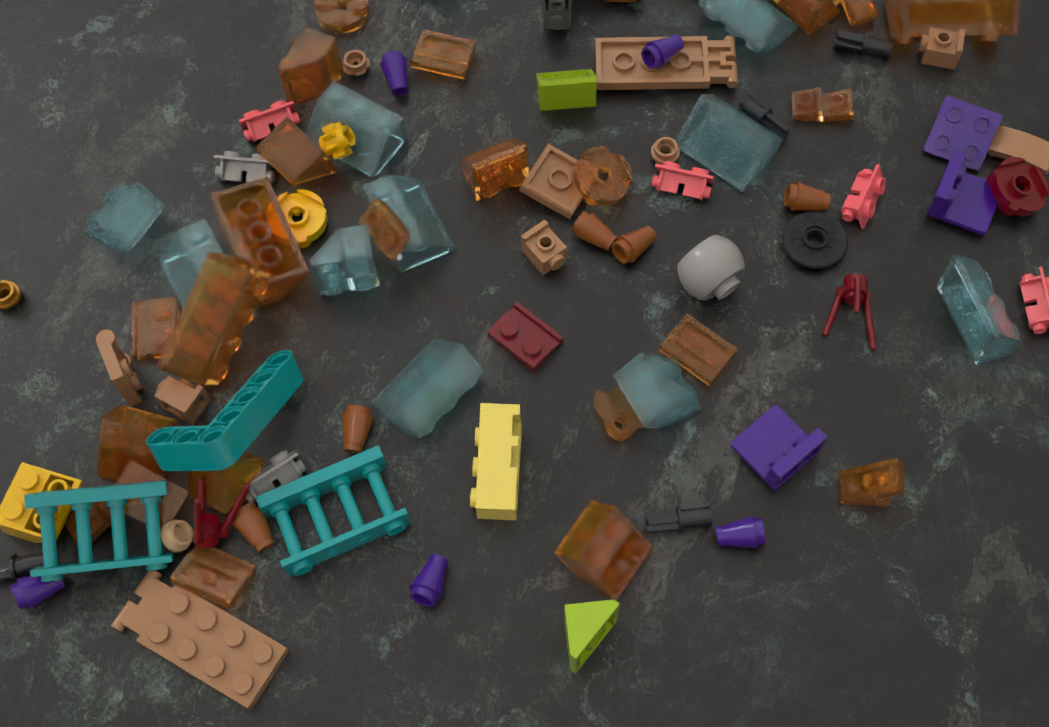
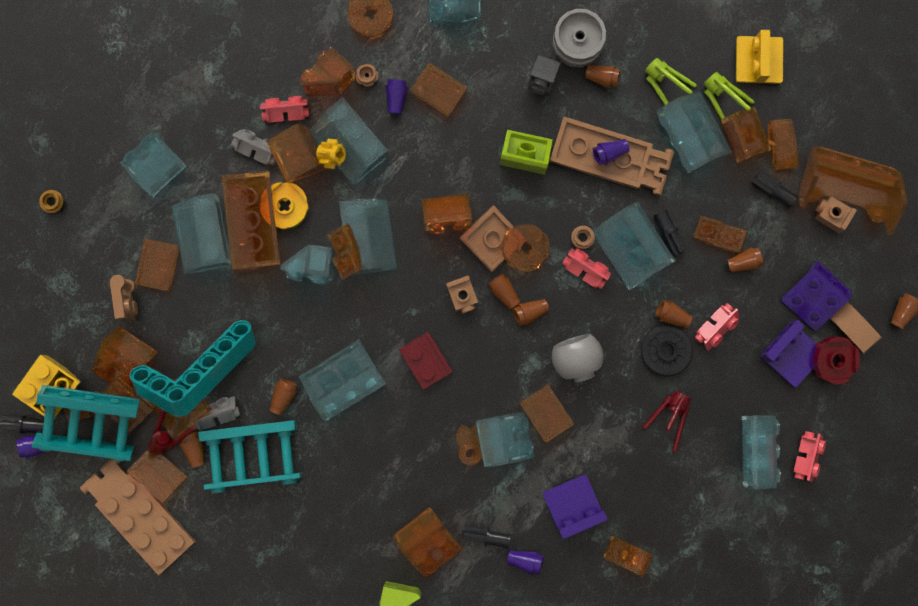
camera: 10 degrees right, 20 degrees up
(176, 535) = (137, 438): tan plate -> none
(182, 398) = (163, 332): medium nougat brick -> none
(213, 319) = (201, 288): clear orange slope -> none
(429, 582) = (302, 526): dark purple cone -> none
(497, 462) = (373, 459): light yellow wedge -> none
(865, 119) = (748, 260): none -> dark orange cone

